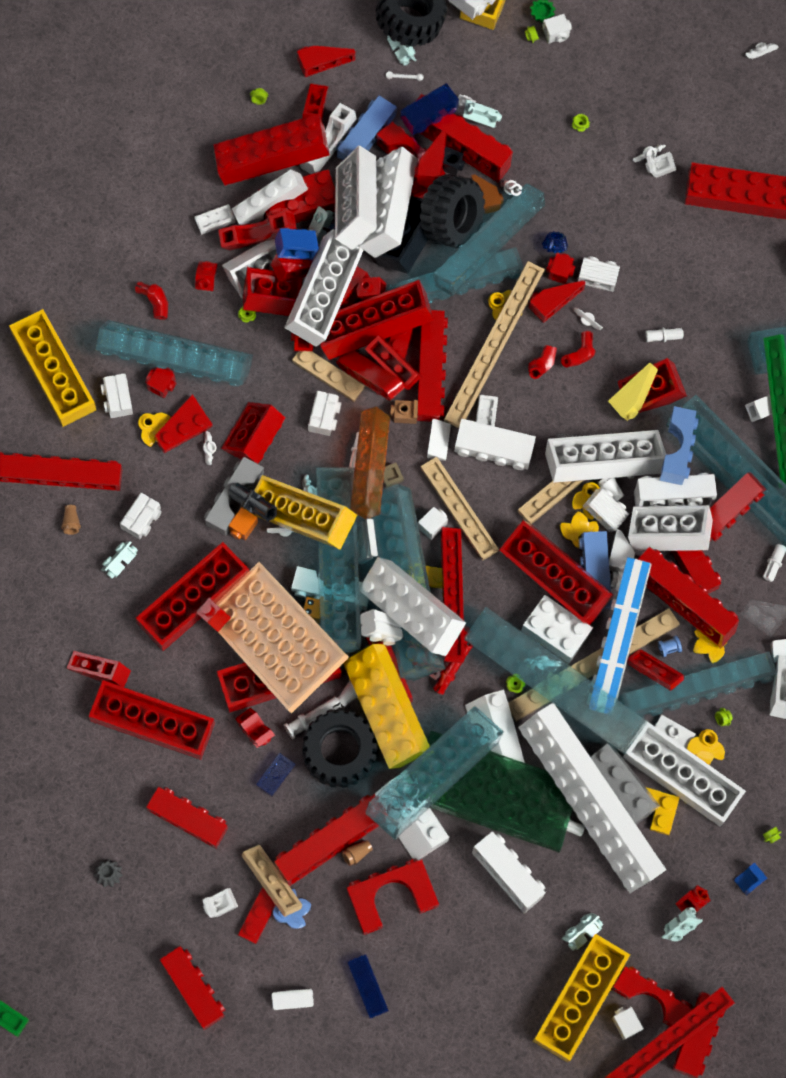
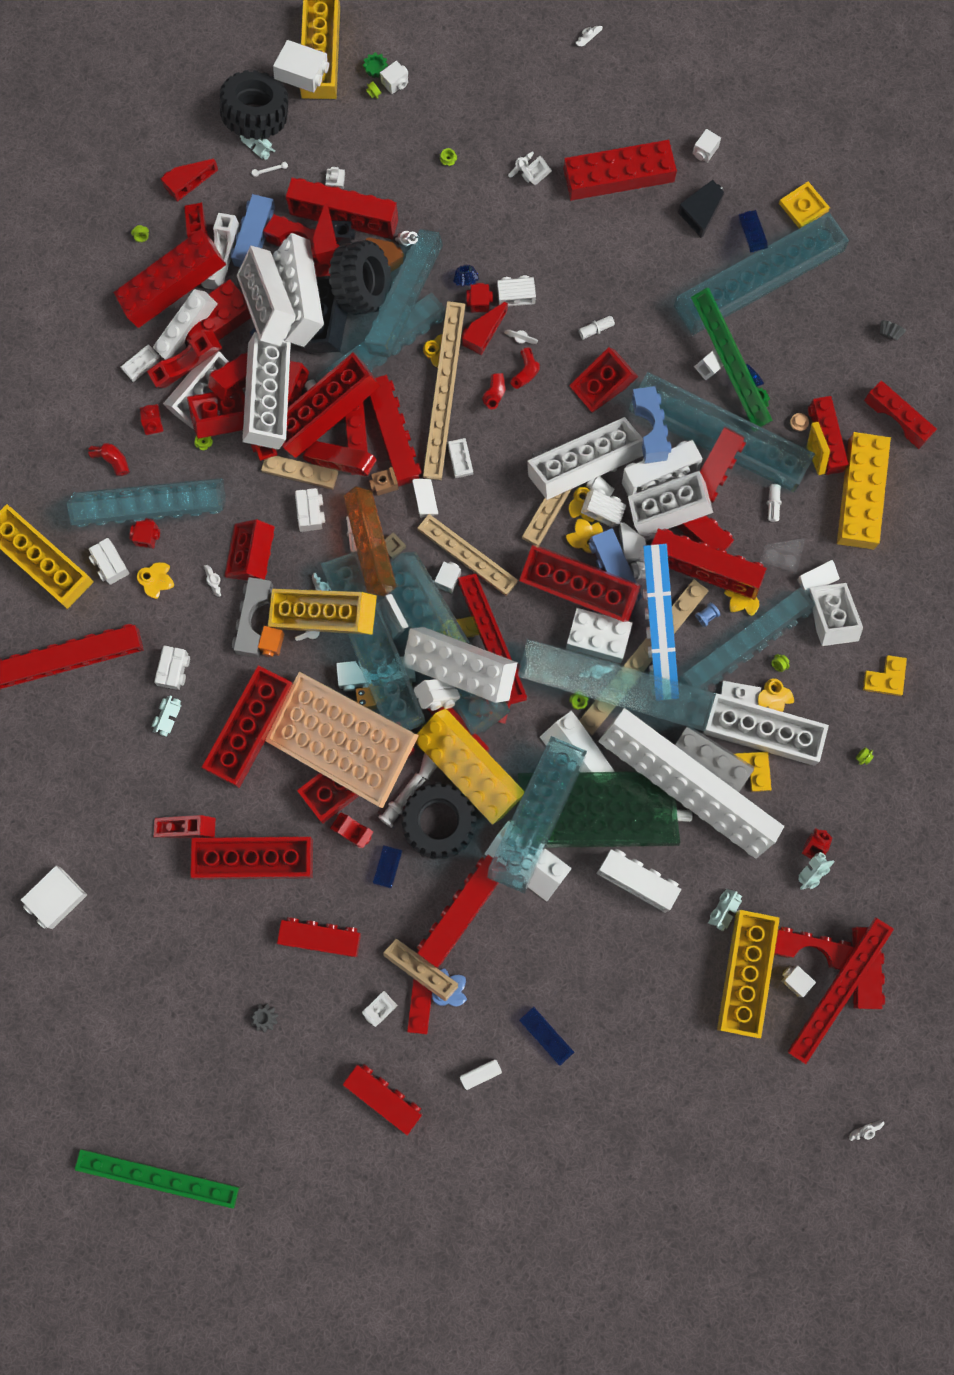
camera: 15 degrees left, 5 degrees up
(70, 520) = (107, 696): medium nougat cone -> none
(183, 425) = (181, 568): red wing -> none
(213, 614) = (274, 737): red brick -> none
(253, 502) = (272, 617): black piece -> none
(296, 244) = (225, 358): blue brick -> none
(321, 219) = (240, 328): light aqua hinge -> none
(357, 852) = (489, 913): medium nougat cone -> none
(370, 287) = (310, 376): red brick -> none
(393, 362) = (356, 438): red brick -> none
(411, 875) = (551, 917): red arch -> none
(429, 109) = (304, 188): clear blue brick -> none
(449, 672) = (515, 714): red pin -> none
(481, 114) = (353, 179): light aqua hinge -> none
(494, 444) = (479, 483): white slope -> none
(633, 394) = (590, 390): light yellow slope -> none
(655, 669) = (703, 641): red plate -> none
(750, 879) = (860, 804): blue panel -> none

